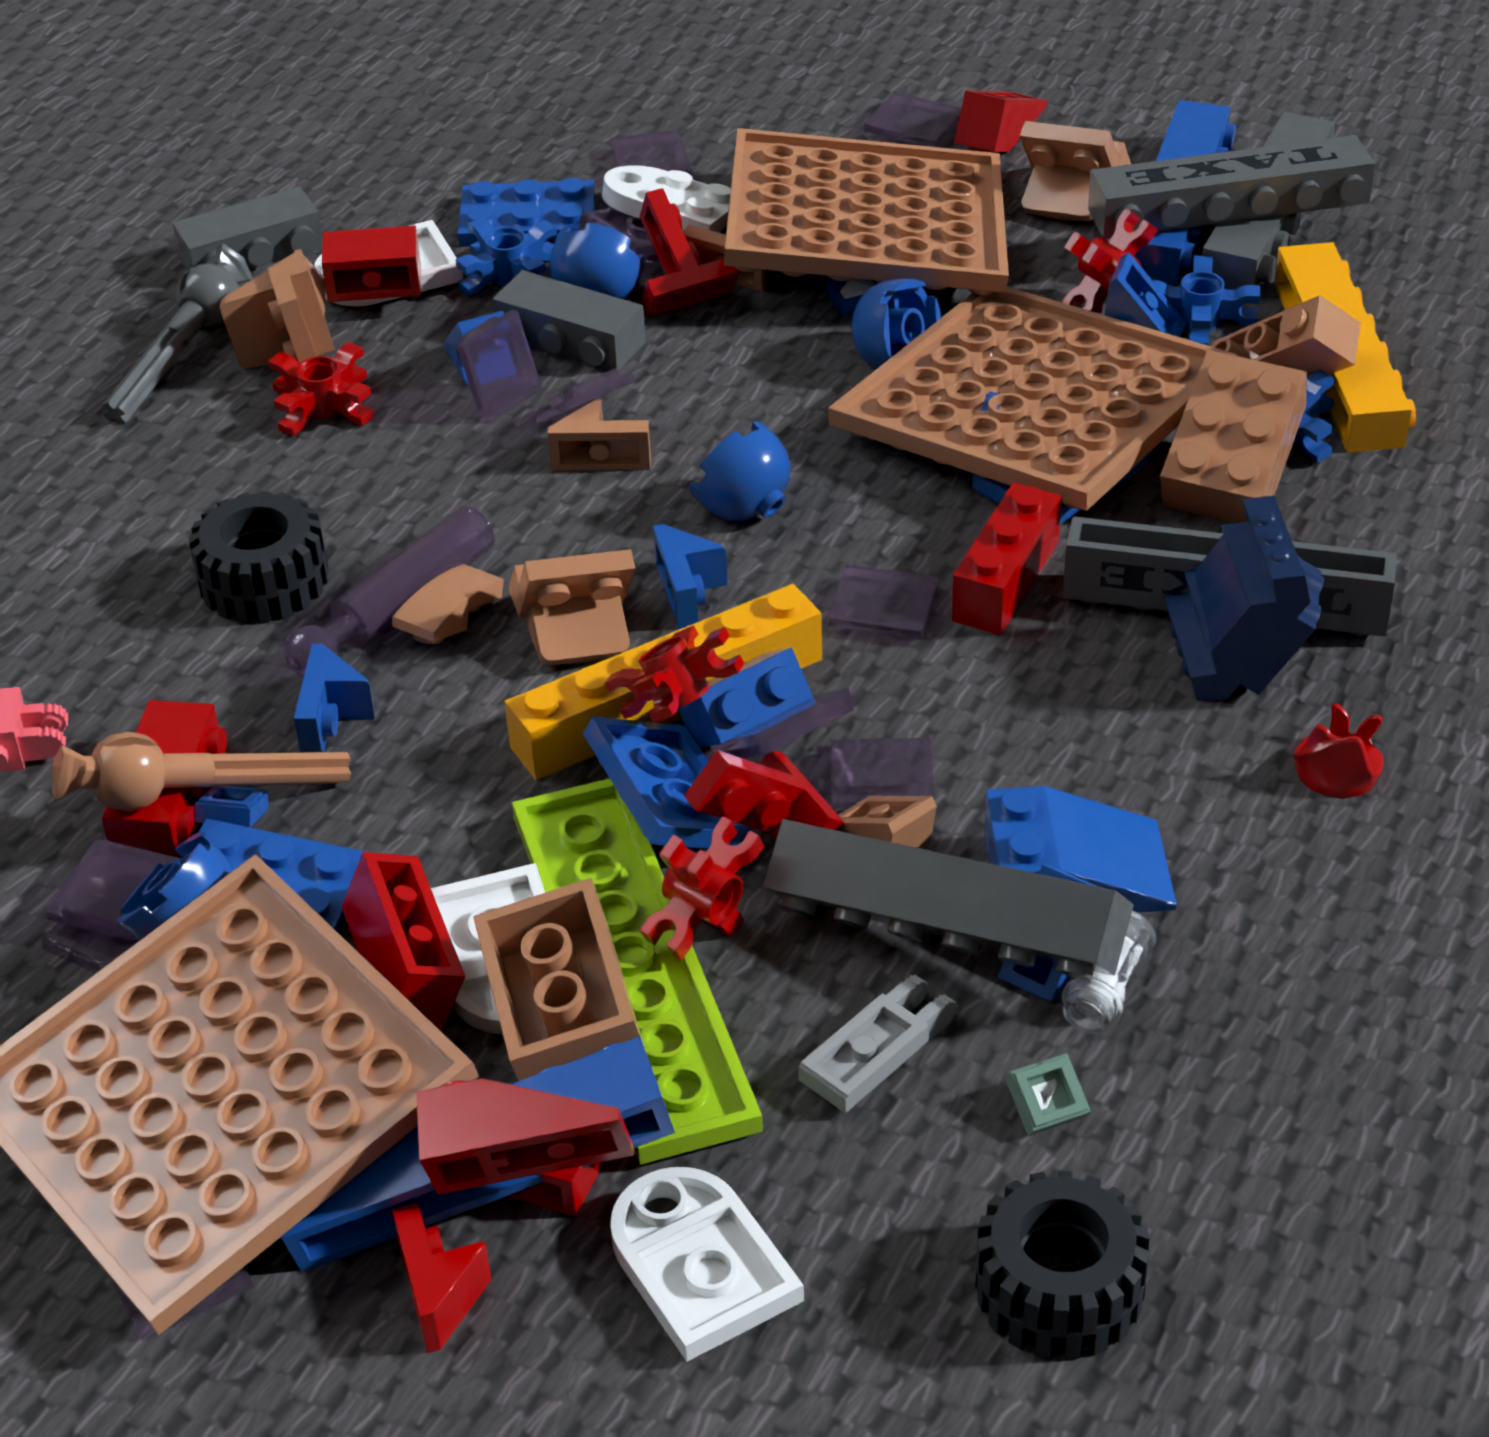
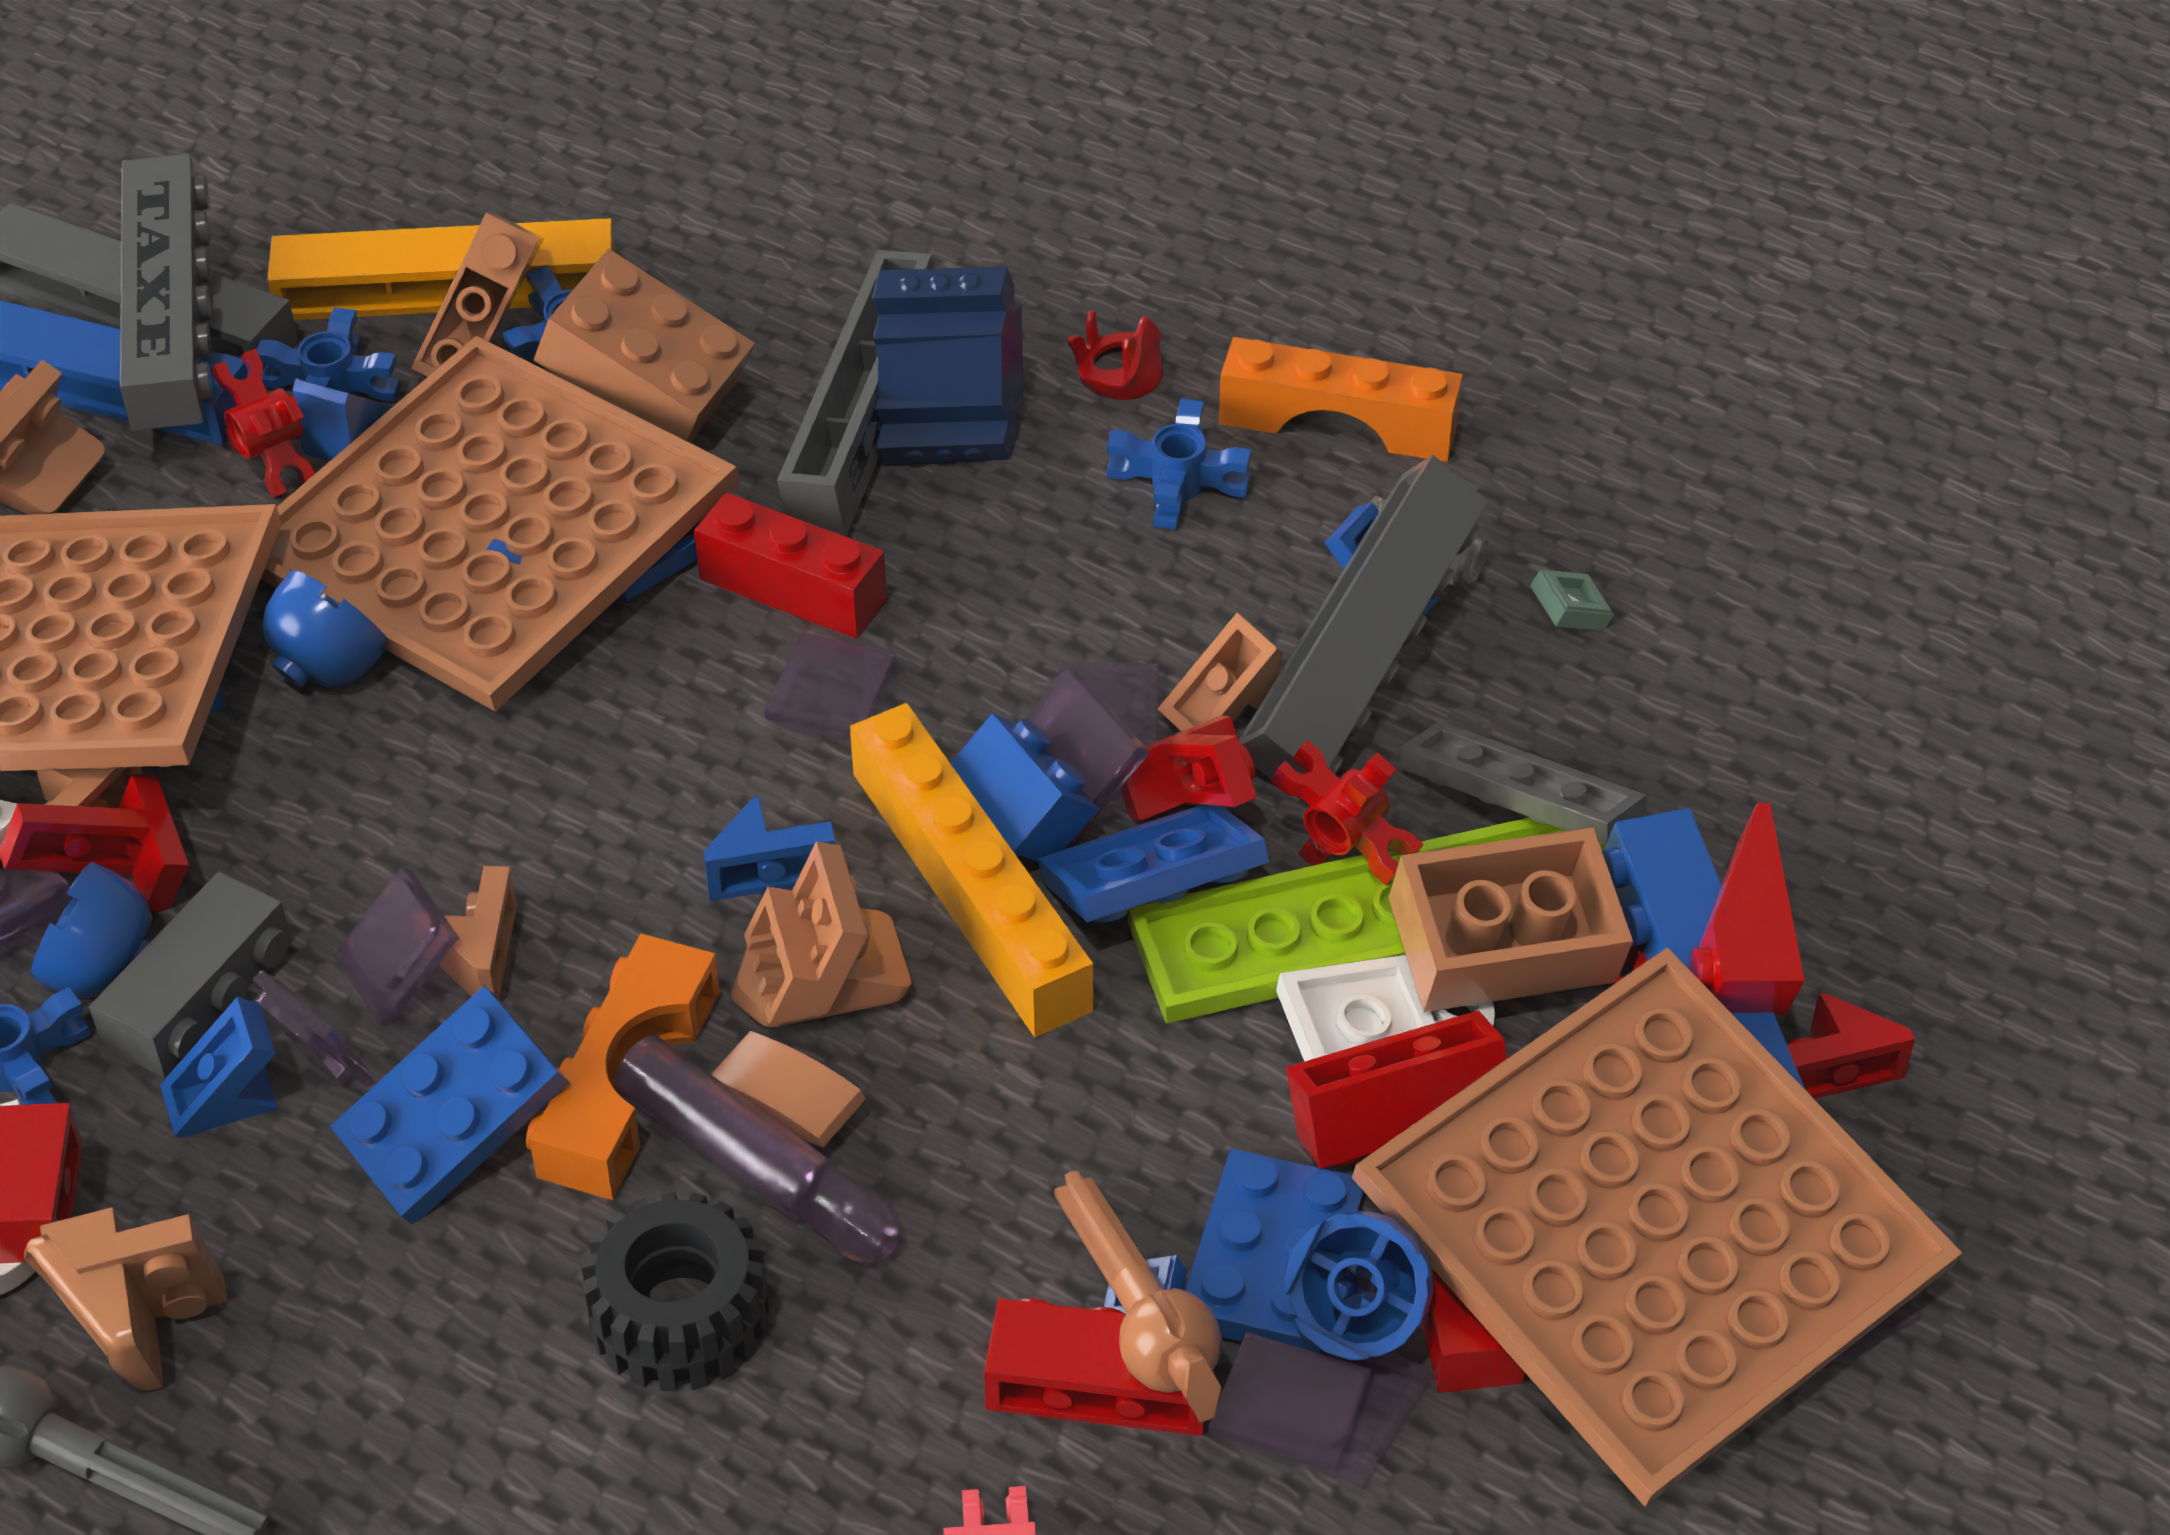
camera: 90 degrees left, 5 degrees up
(320, 388) = (282, 1280): red pin -> none
(329, 693) = (948, 1208): blue slope -> none
(434, 435) = (449, 1105): none -> blue plate
(526, 521) = (588, 1128): none -> orange arch
(674, 673) = (1026, 797): red pin -> none
(704, 1263) = (1822, 844): white plate -> none
(744, 476) = (605, 772): blue cylinder -> none
(760, 1029) = (1520, 780): none -> flat silver plate
(875, 1043) = (1507, 712): light grey hinge -> none
(1055, 1306) = (1785, 594): black tyre -> none
(1080, 838) = (1261, 562): blue slope -> none
(1189, 795) = (1178, 463): none -> blue pin
(1302, 908) = (1405, 404): none -> orange arch

